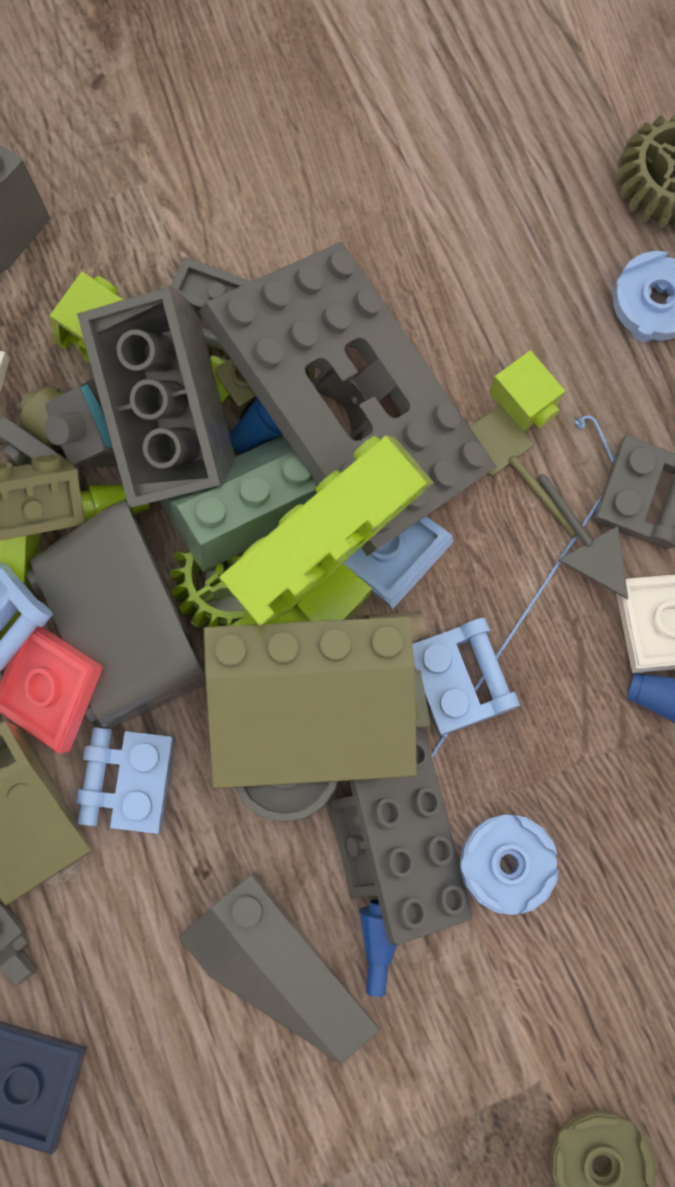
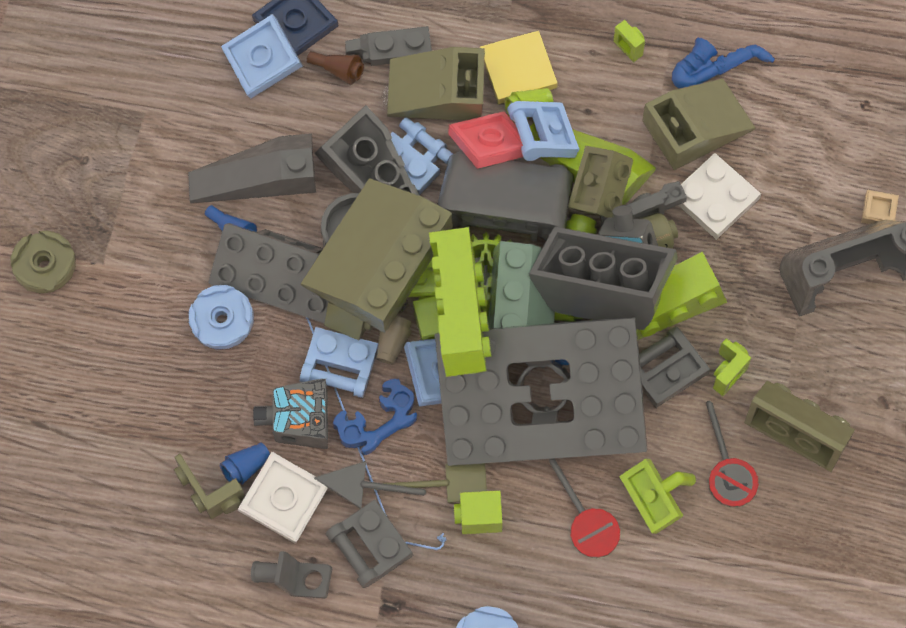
camera: 125 degrees right, 10 degrees down
(55, 963) = (345, 67): none -> reddish brown cone
(108, 1090) = (261, 56): none -> light blue plate
(166, 233) = (729, 373): none -> lime bracket
(177, 824) = (363, 152): none -> dark grey wedge
(186, 124) = (799, 425): none -> olive slope
(293, 172) = (731, 480): none -> piece
(374, 227) = (653, 494): none -> lime plate
(452, 274) = (593, 530): none -> piece
(535, 600) = (352, 432): none -> blue helmet
(565, 676) = (297, 414): none -> torso

